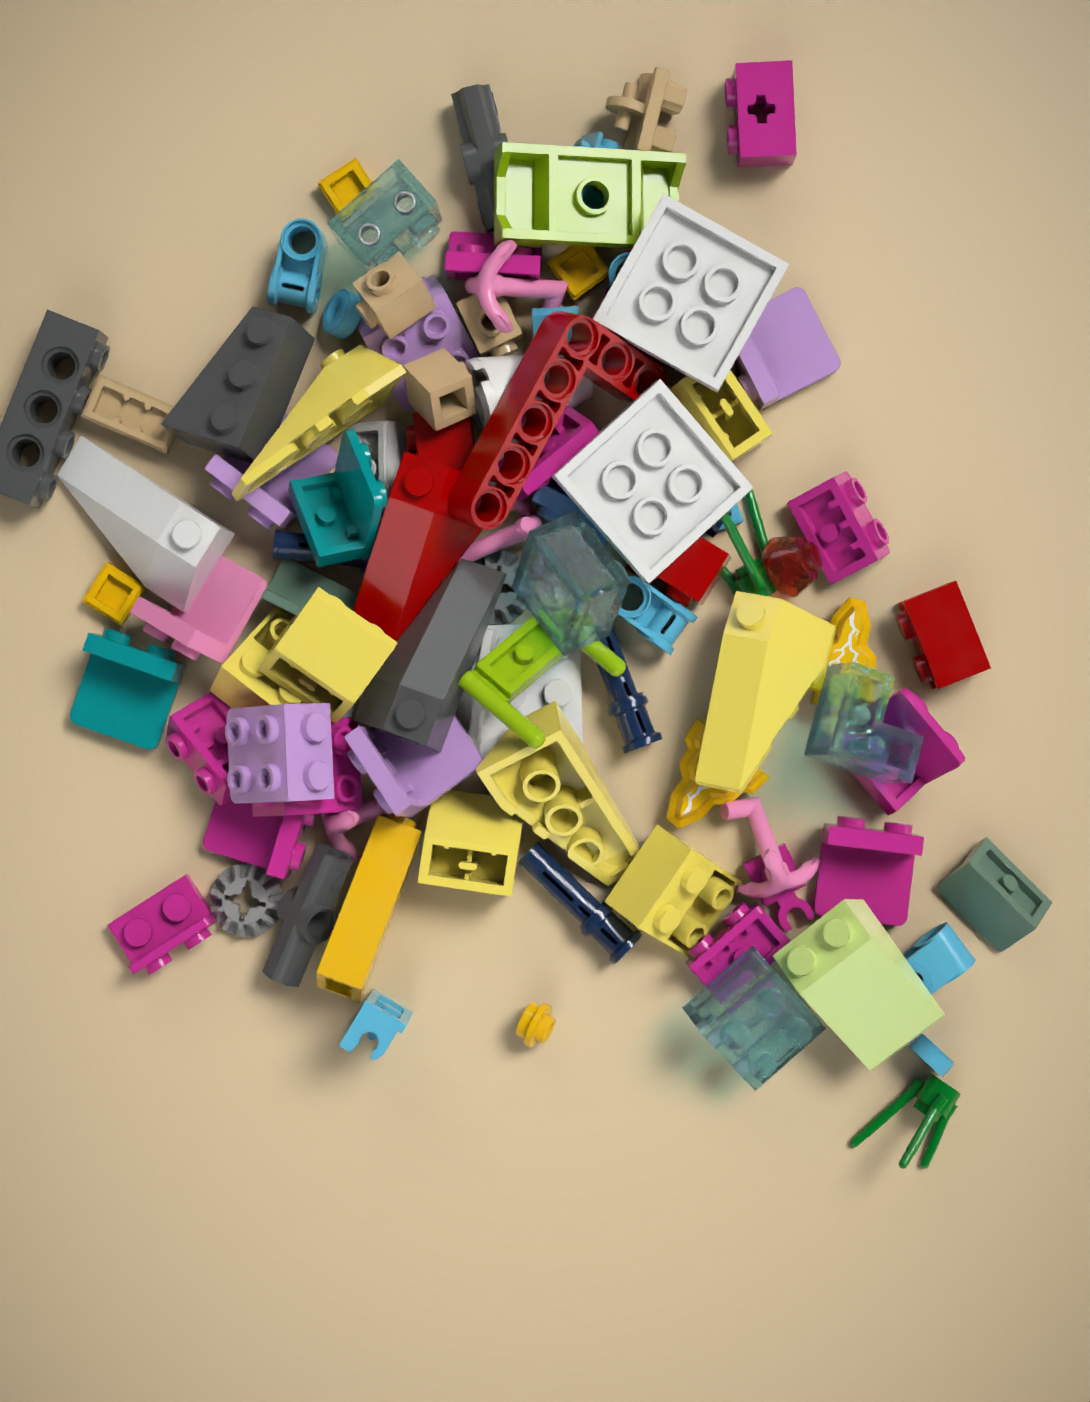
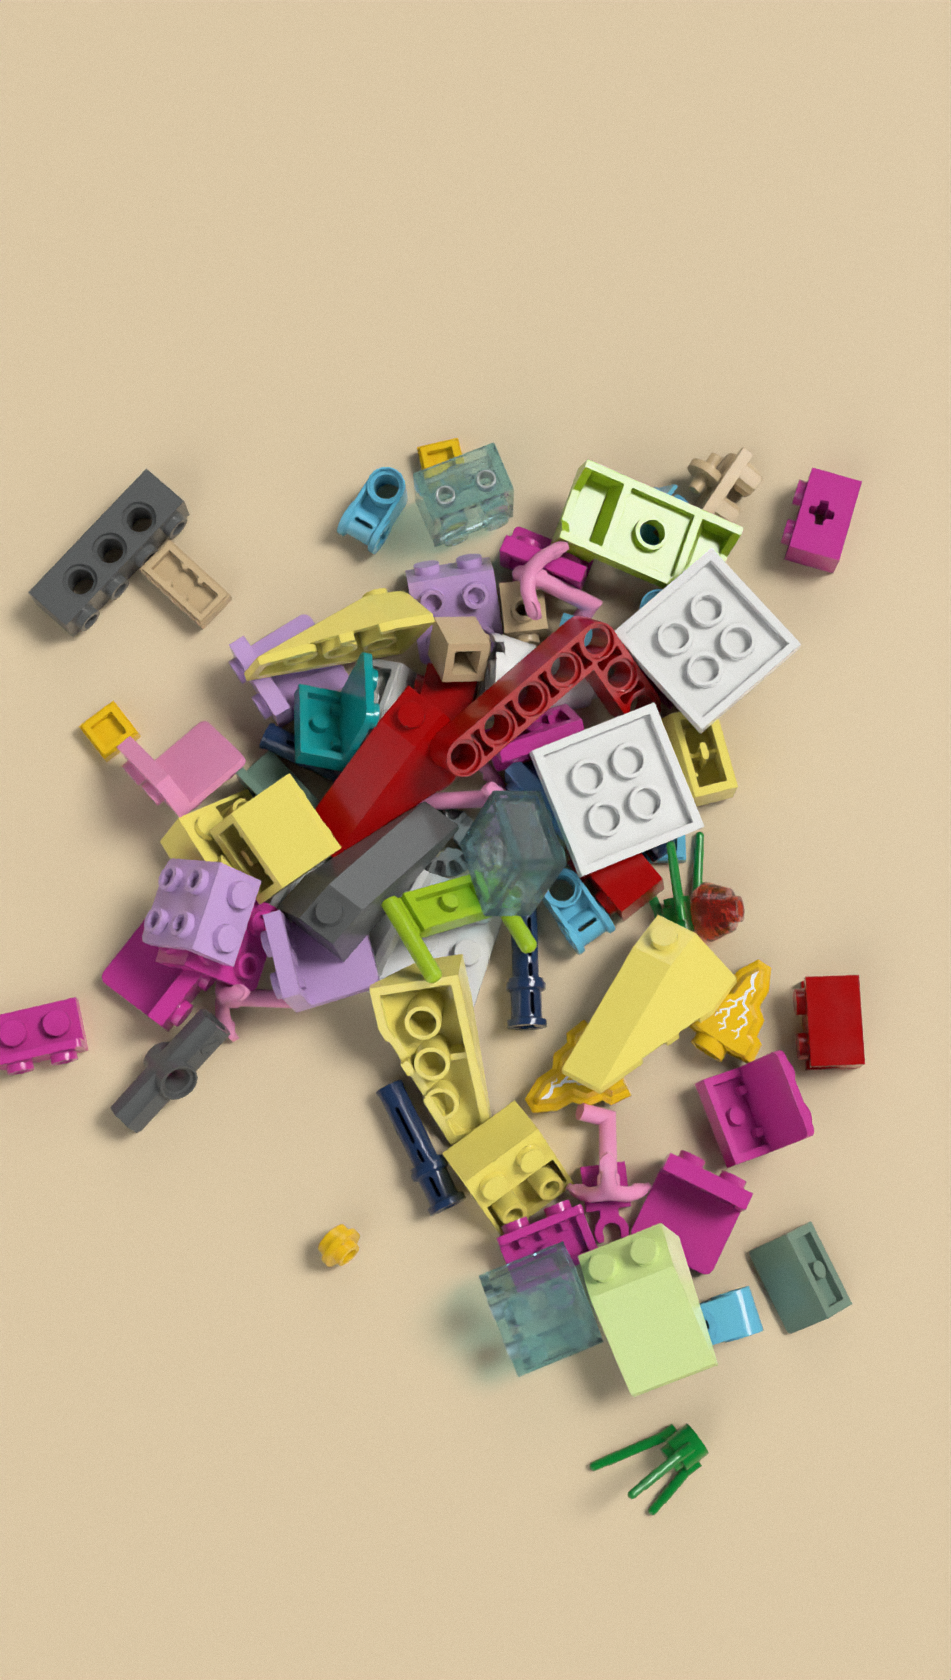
camera: 20 degrees right, 10 degrees down
(126, 689) = (88, 814): teal bracket -> none
(152, 529) = (163, 684): white wedge -> none
(199, 740) = (134, 883): dark pink bracket -> none
(232, 882) = (99, 1045): light grey gear -> none
(244, 387) = (289, 590): dark grey wedge -> none
(341, 315) = (398, 561): medium azure tile -> none
(368, 907) = (226, 1085): yellow slope -> none
(381, 1019) = (194, 1186): medium azure hinge -> none
(392, 296) = (446, 555): tan brick -> none
(470, 844) = (340, 1058): light yellow slope -> none
(480, 136) = (572, 449): dark grey piece -> none
(580, 269) = (618, 595): yellow tile -> none
(785, 350) = (772, 725): lavender bracket -> none
(840, 526) = (771, 894): dark pink bracket -> none
(851, 728) = (719, 1074): clear light blue brick -> none
(931, 1055) = (693, 1405): medium azure tile -> none

